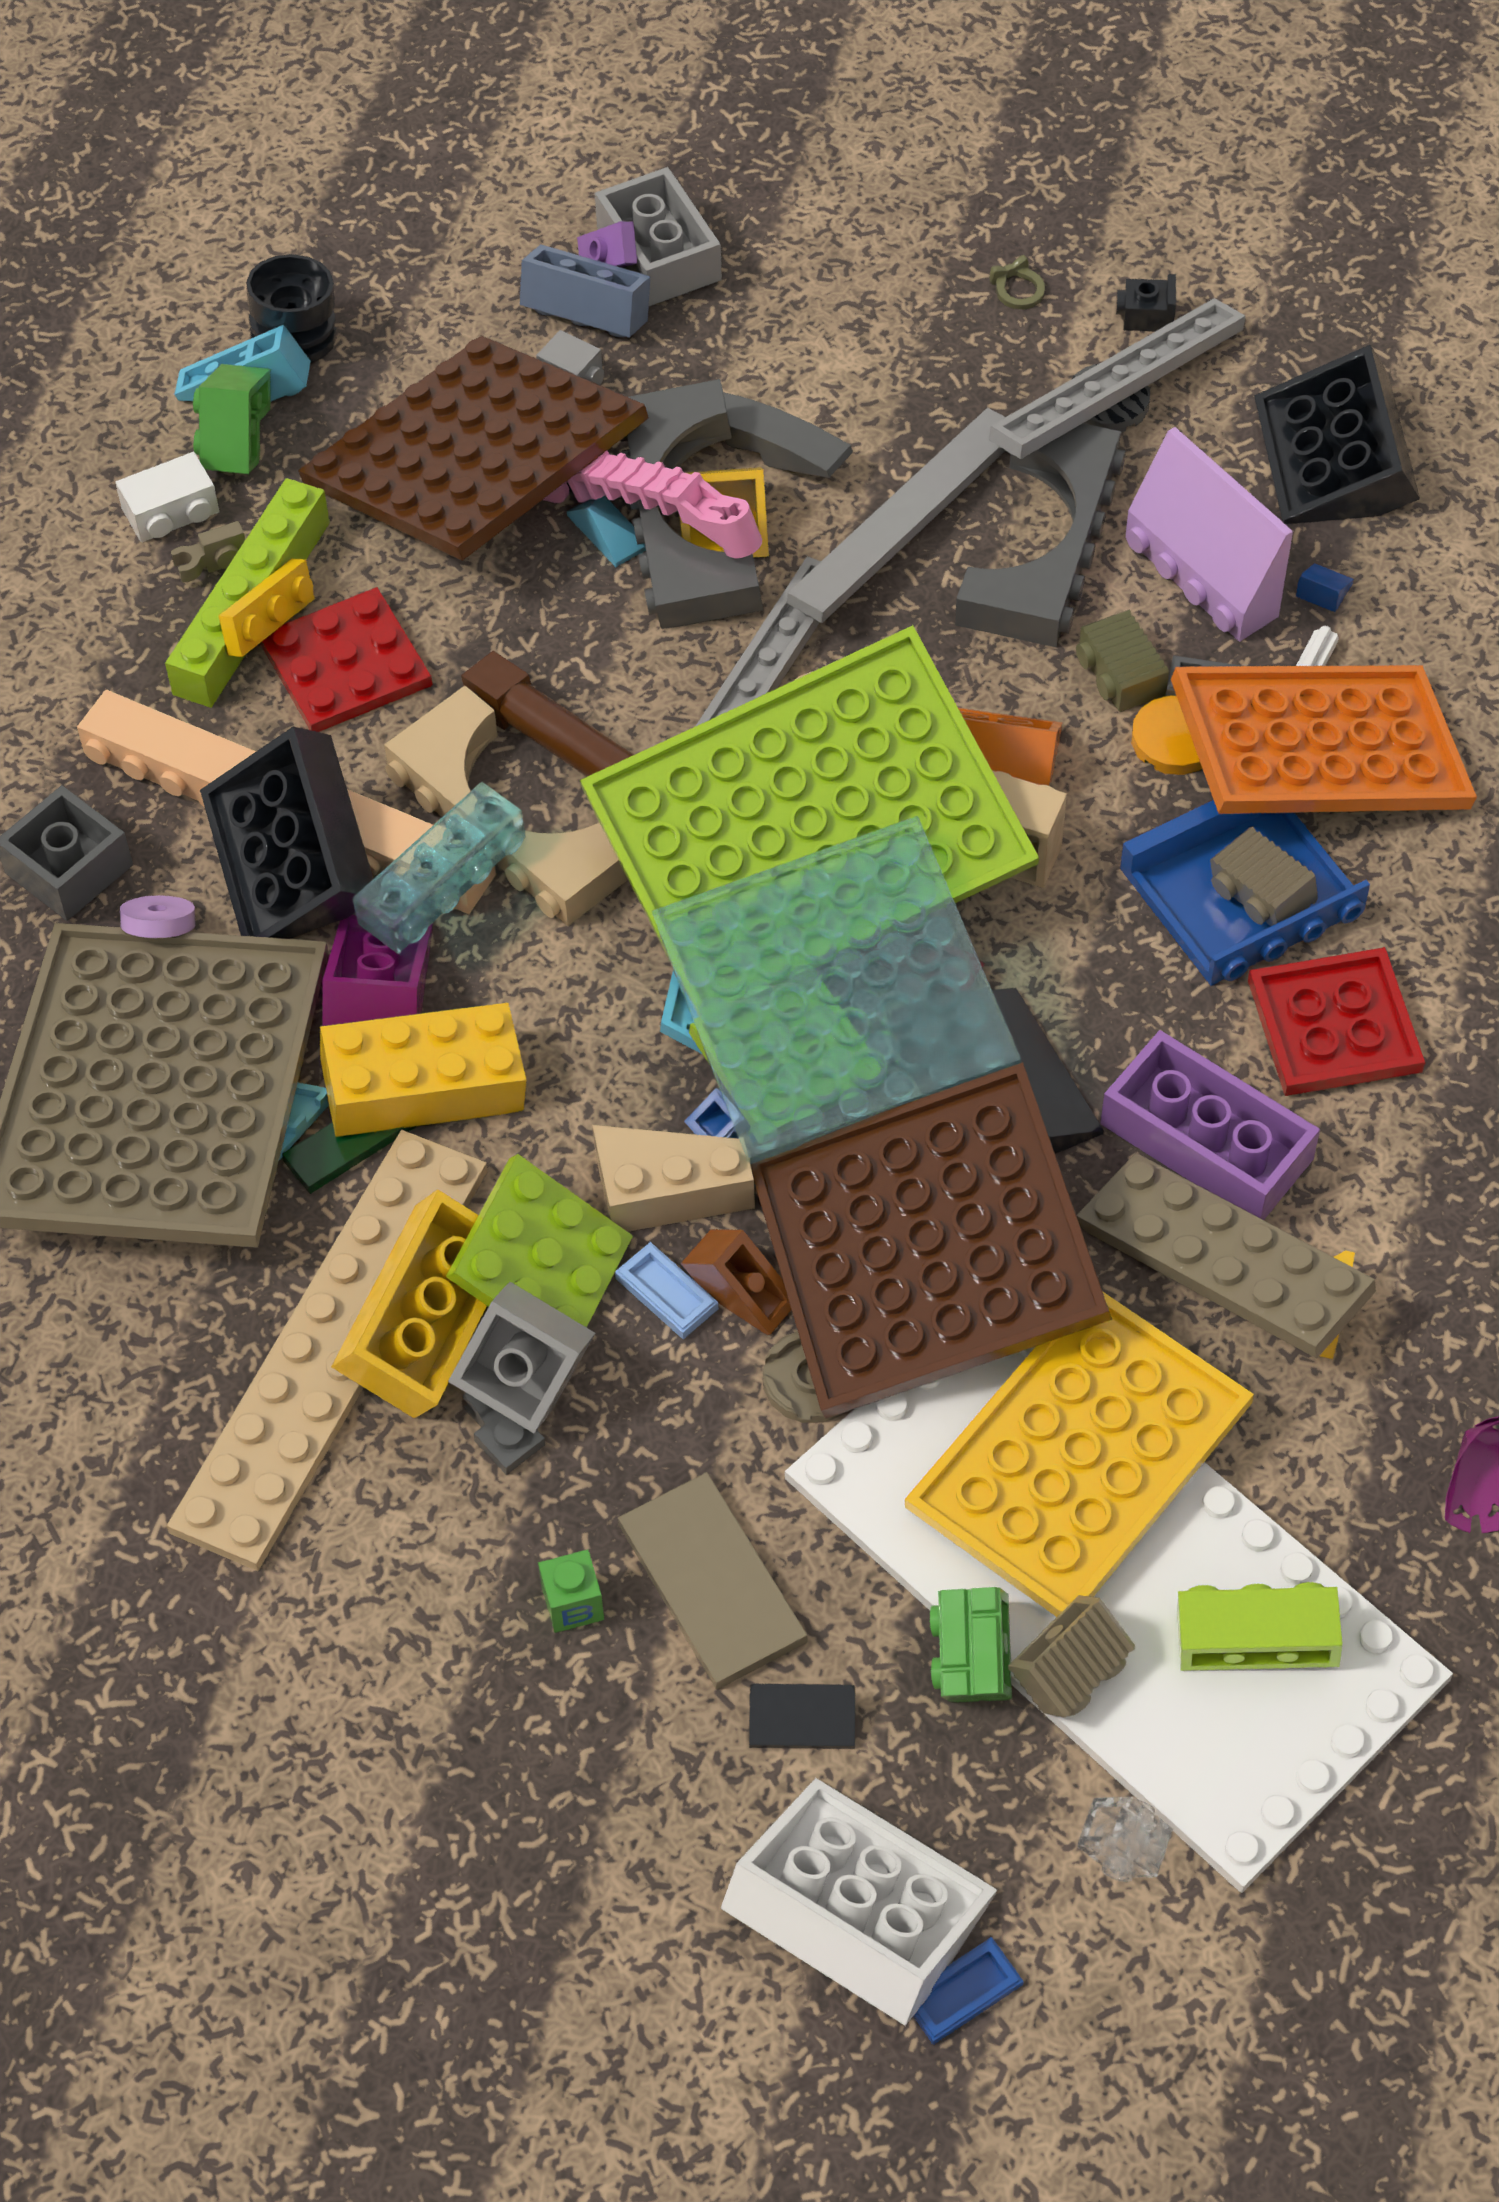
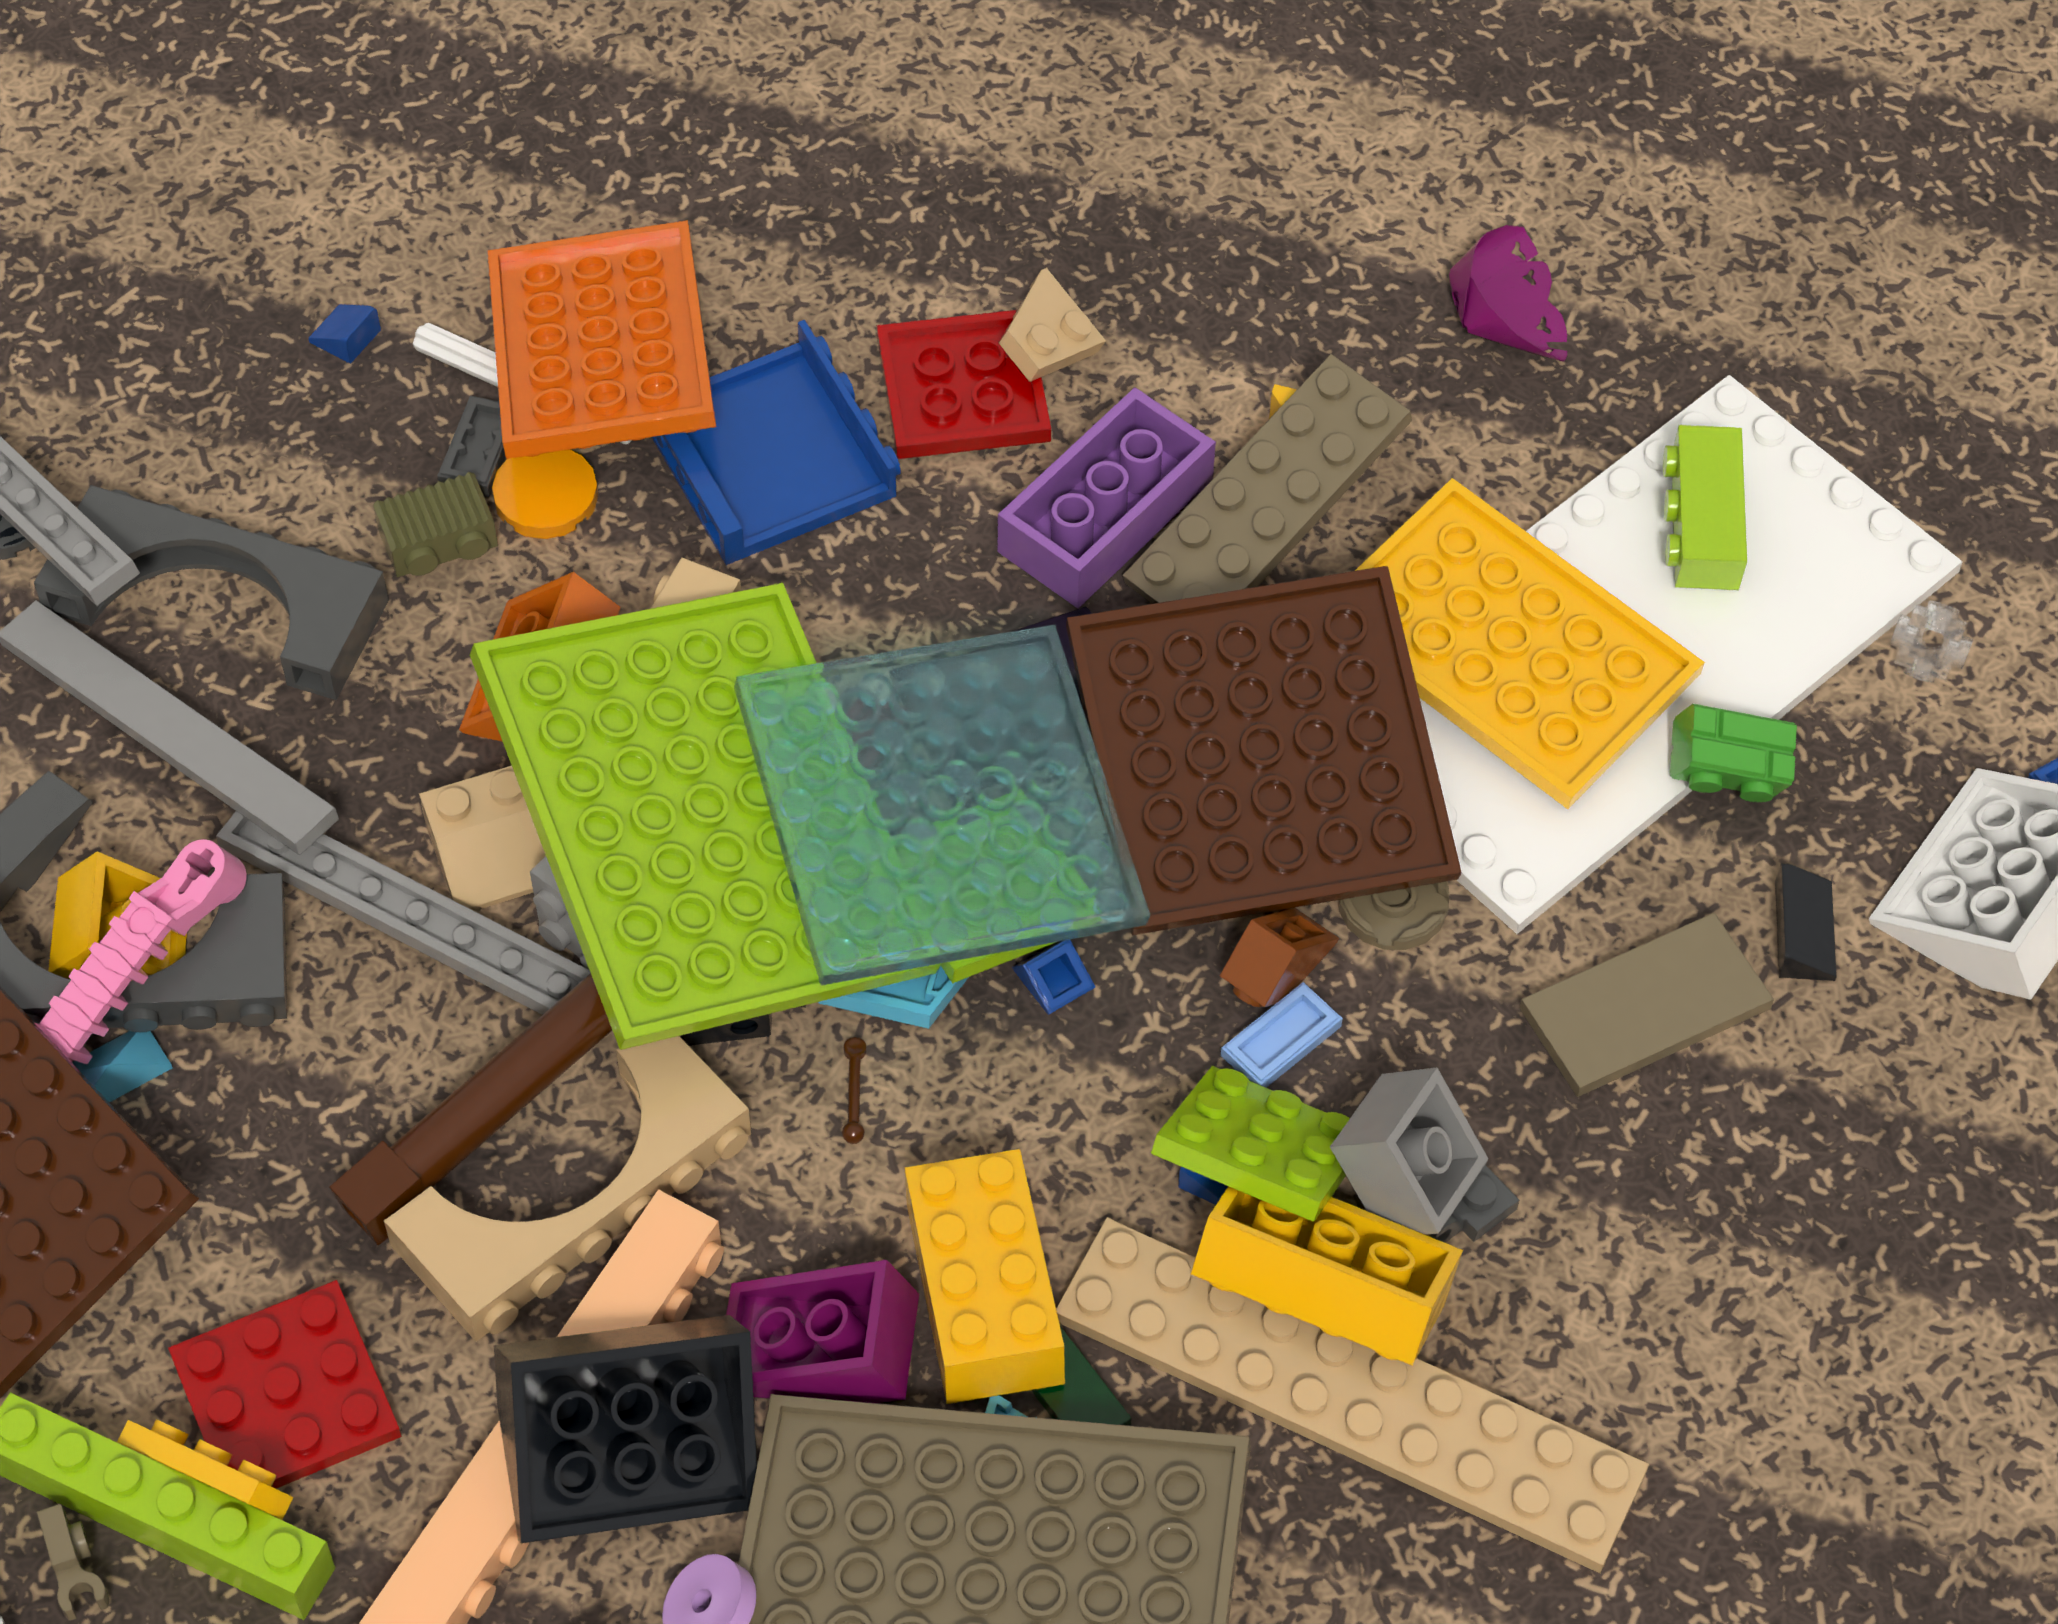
camera: 90 degrees left, 0 degrees up
(440, 868) = (702, 1232): clear light blue brick -> none
(571, 1591) = (1679, 1128): bright green brick -> none
(644, 988) = (854, 1051): none -> reddish brown hinge
(670, 1176) = (1146, 1023): tan wedge -> none
(1072, 1657) = (1749, 662): dark tan brick -> none
(1210, 537) = (291, 403): lavender slope -> none
(1263, 878) = (784, 415): dark tan brick -> none
(1337, 442) = (134, 289): black slope -> none
(1399, 1076) = (1049, 330): none -> tan wing

